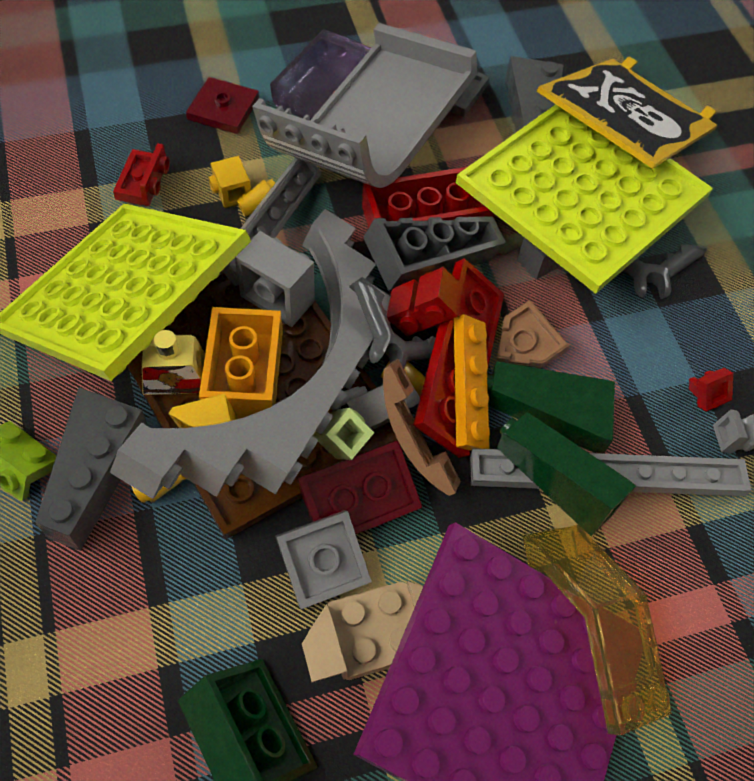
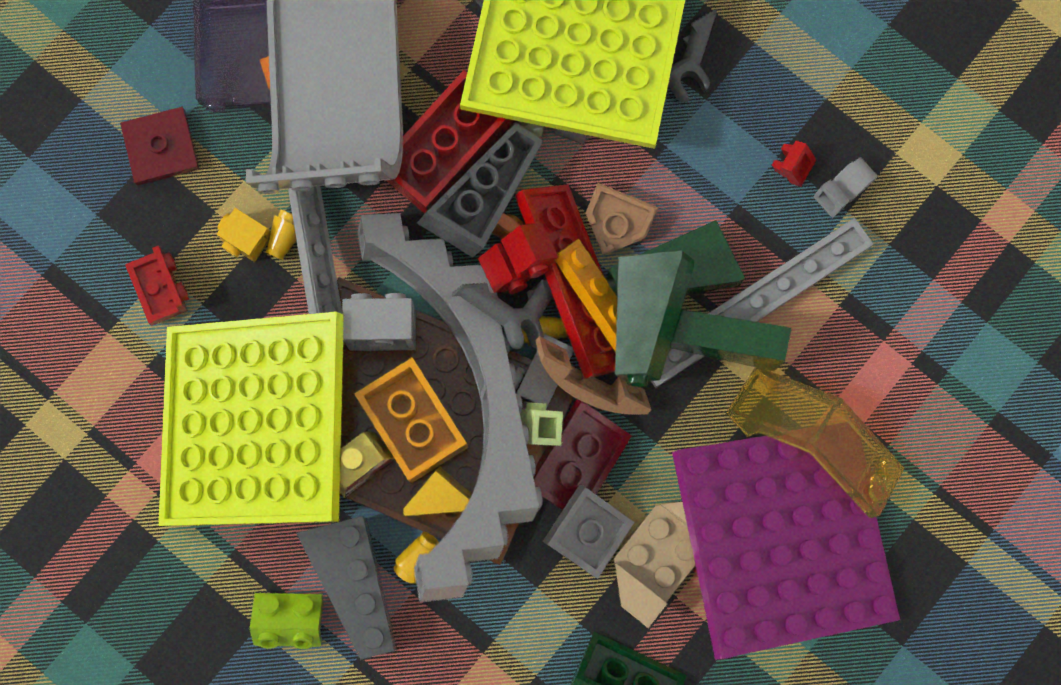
camera: 30 degrees left, 20 degrees up
(508, 401) = (648, 311): none -> slope

